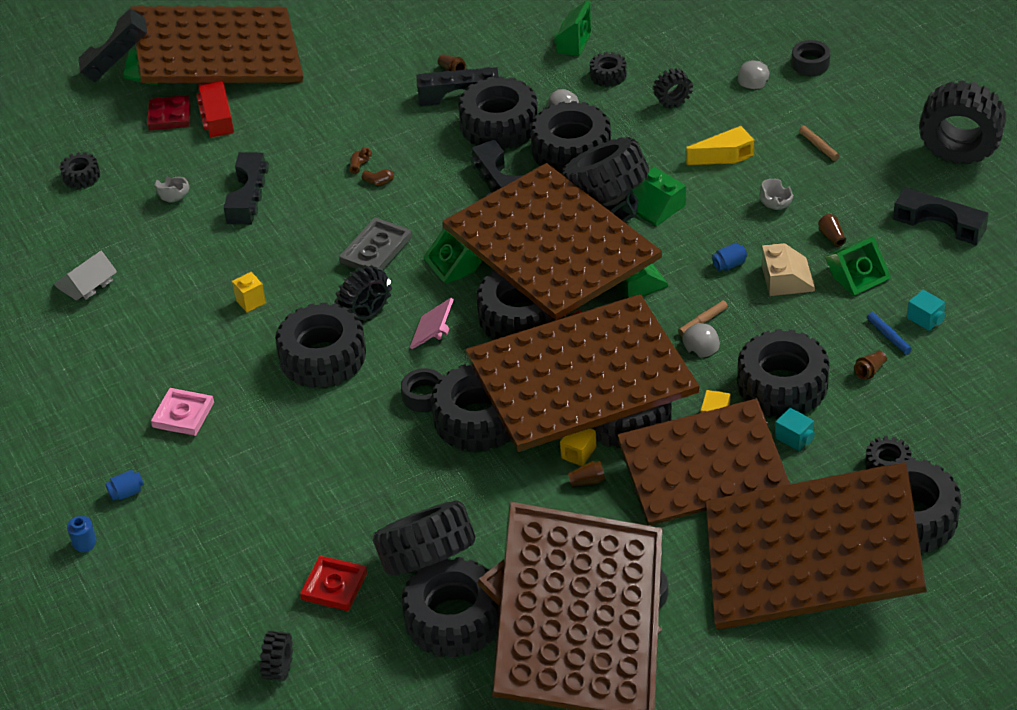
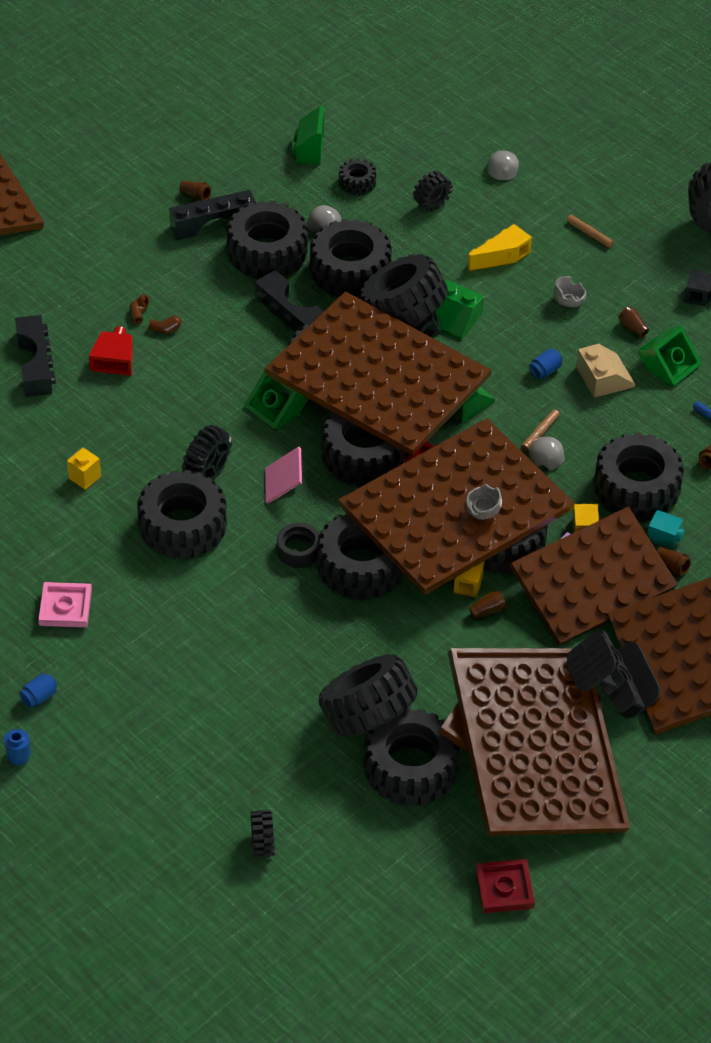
camera: 20 degrees left, 5 degrees up
(318, 195) = (113, 353): none -> red torso
(333, 583) = (285, 753): red plate -> none
(376, 245) = (193, 400): dark grey plate -> none
(602, 370) = (484, 502): none -> light grey hair
(691, 561) = (621, 673): none -> black piece
(795, 461) = (675, 561): none -> reddish brown cone
(810, 48) = (551, 150): black tyre -> none

